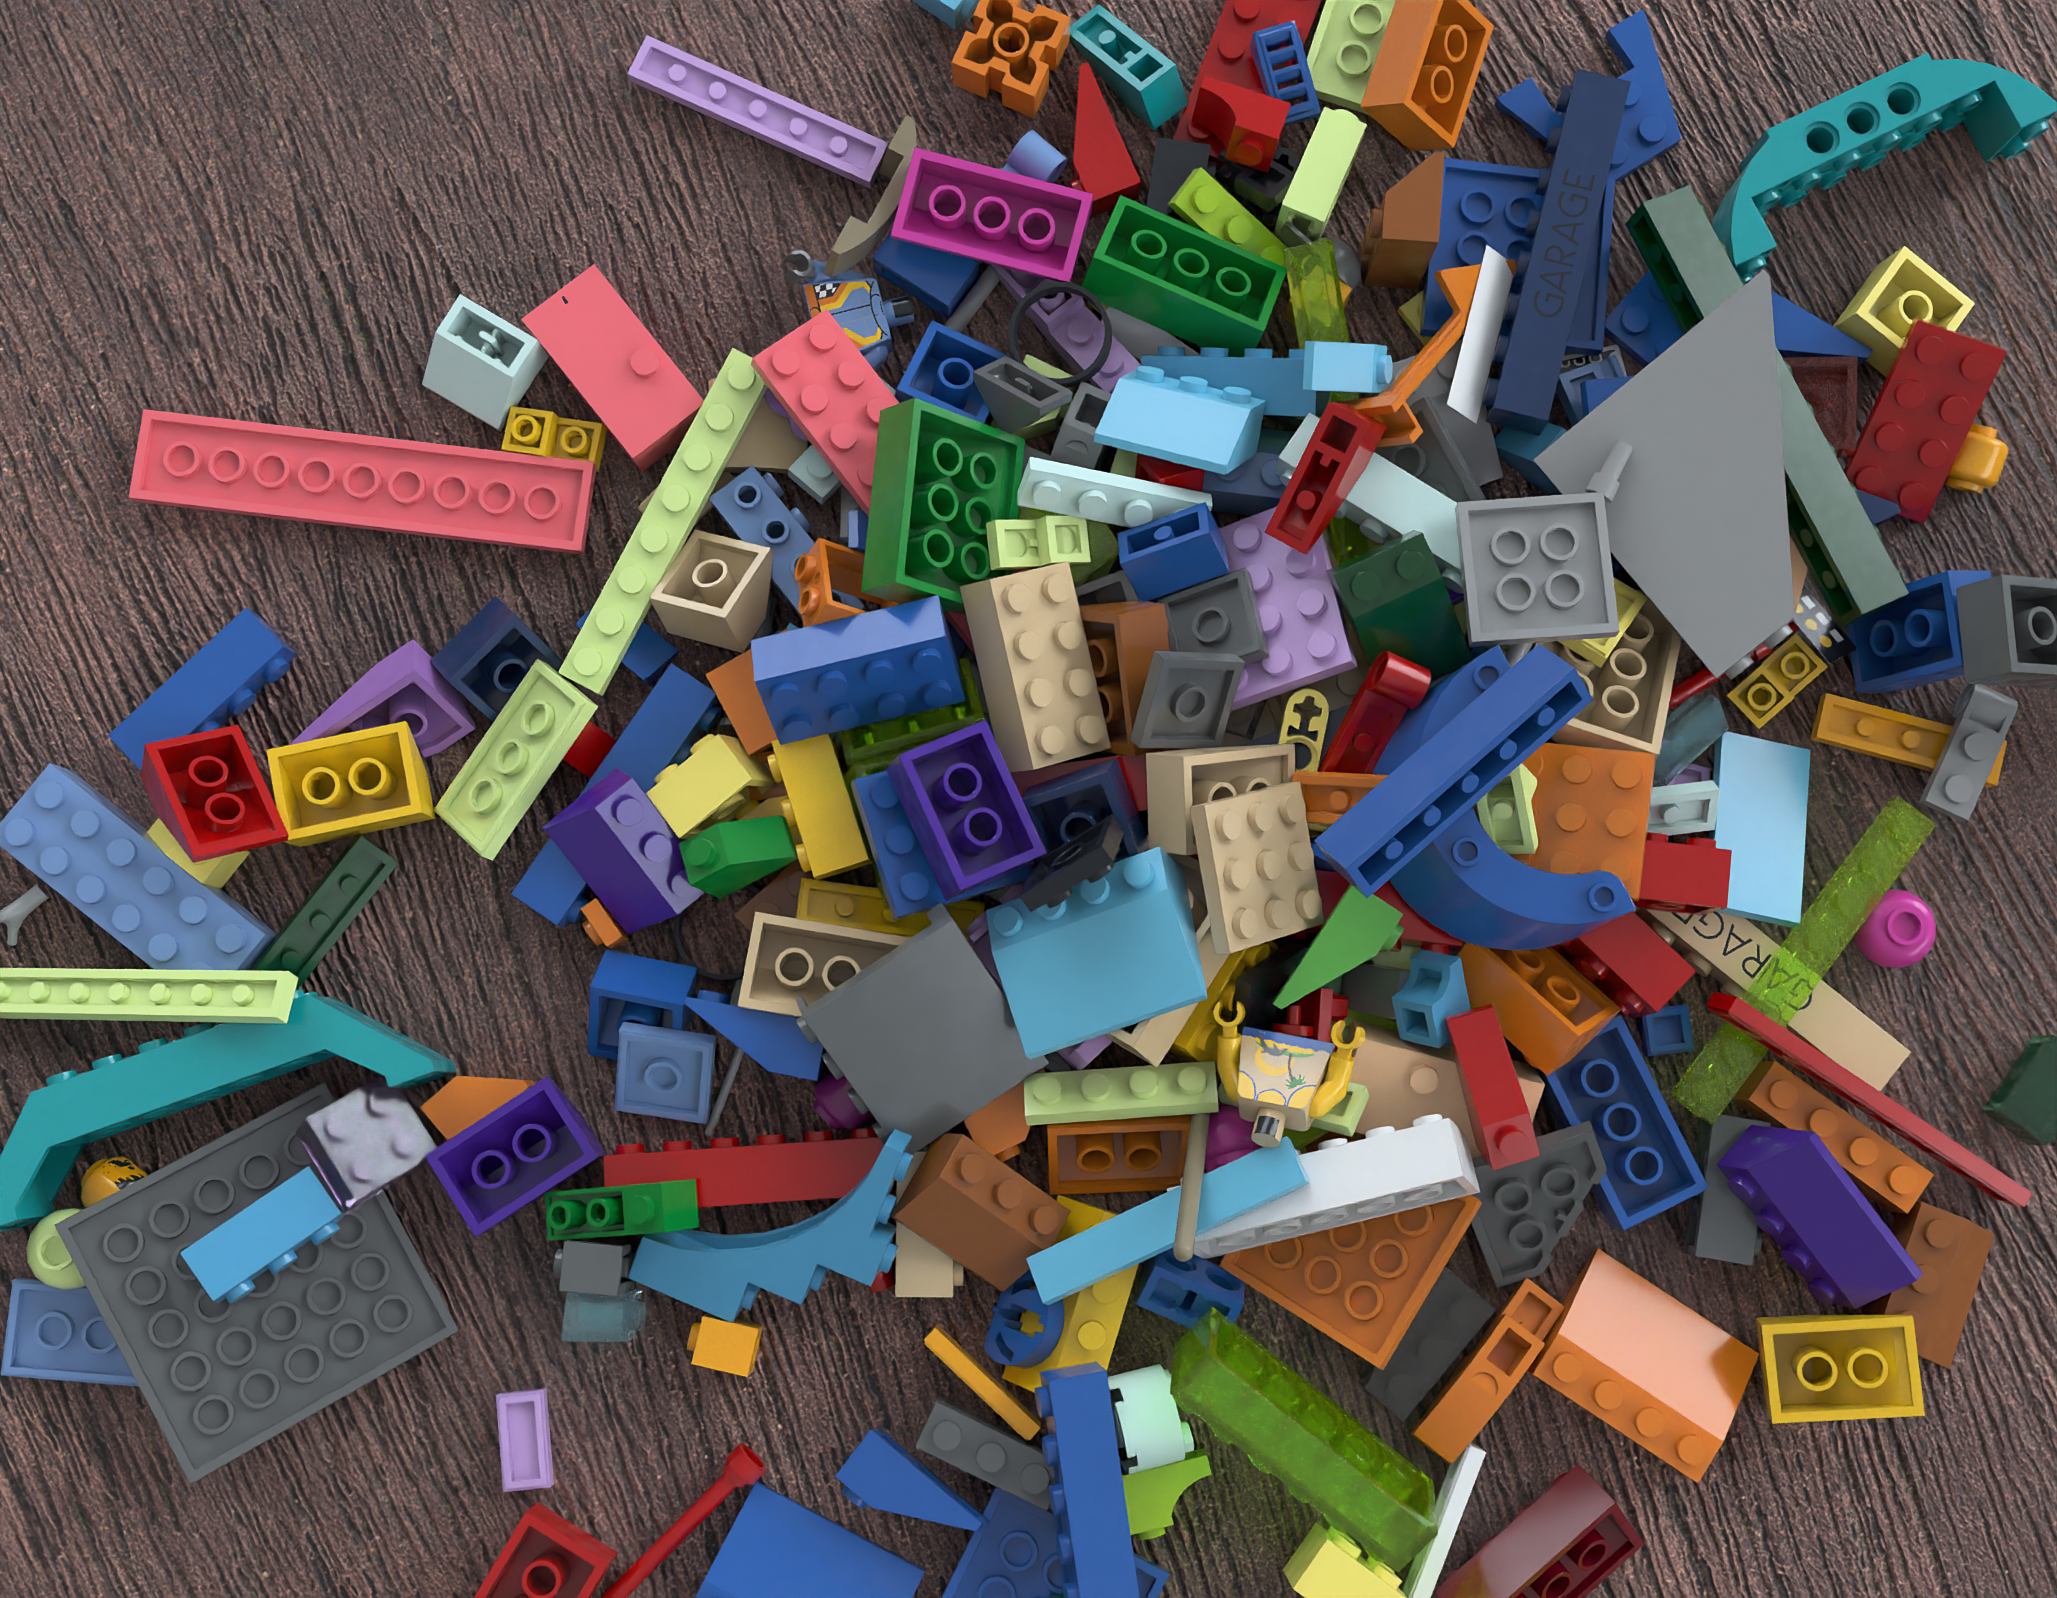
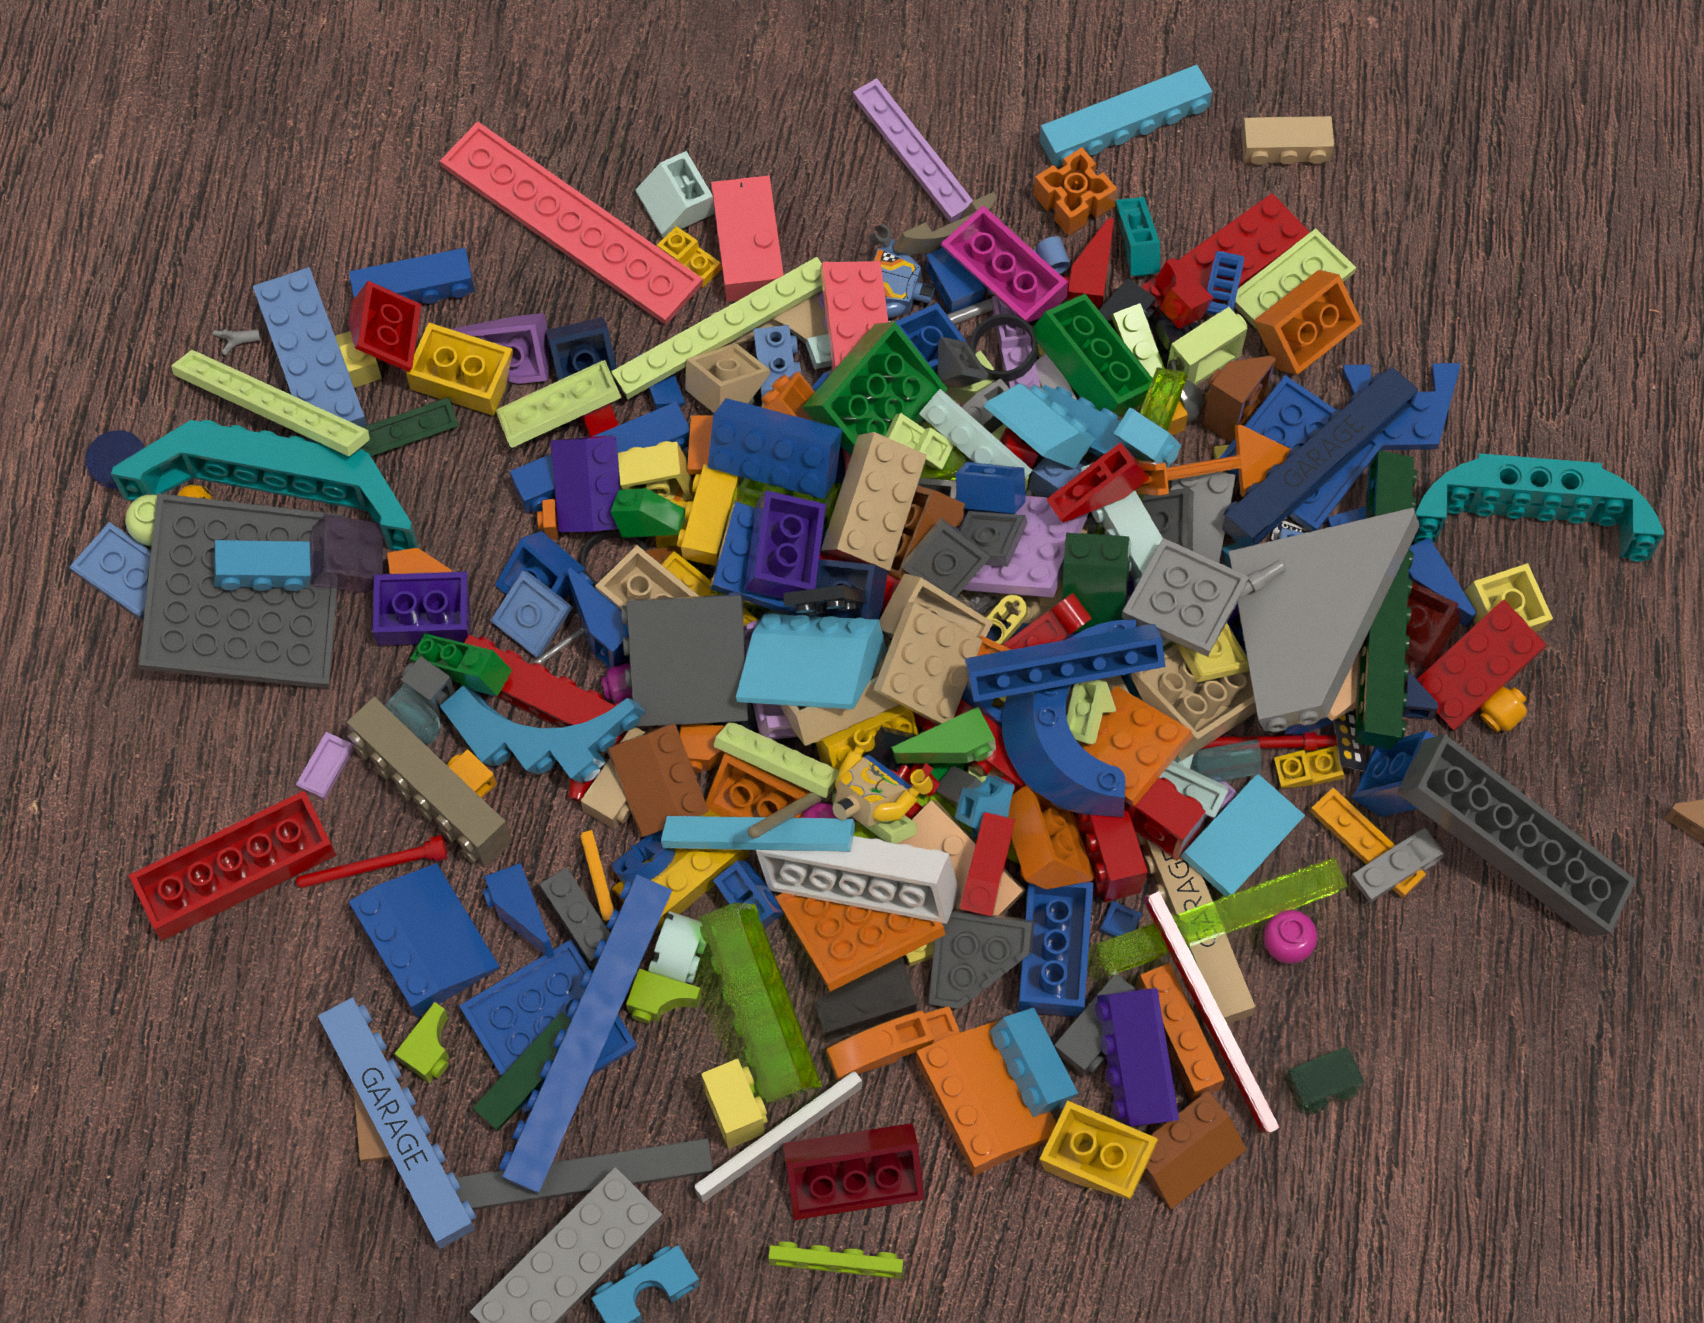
camera: 30 degrees right, 15 degrees down
(672, 1393) = (428, 782): none -> dark tan brick
(1480, 335) = (1250, 471): white sticker -> none
(1679, 1291) = (1033, 1062): none -> dark azure brick

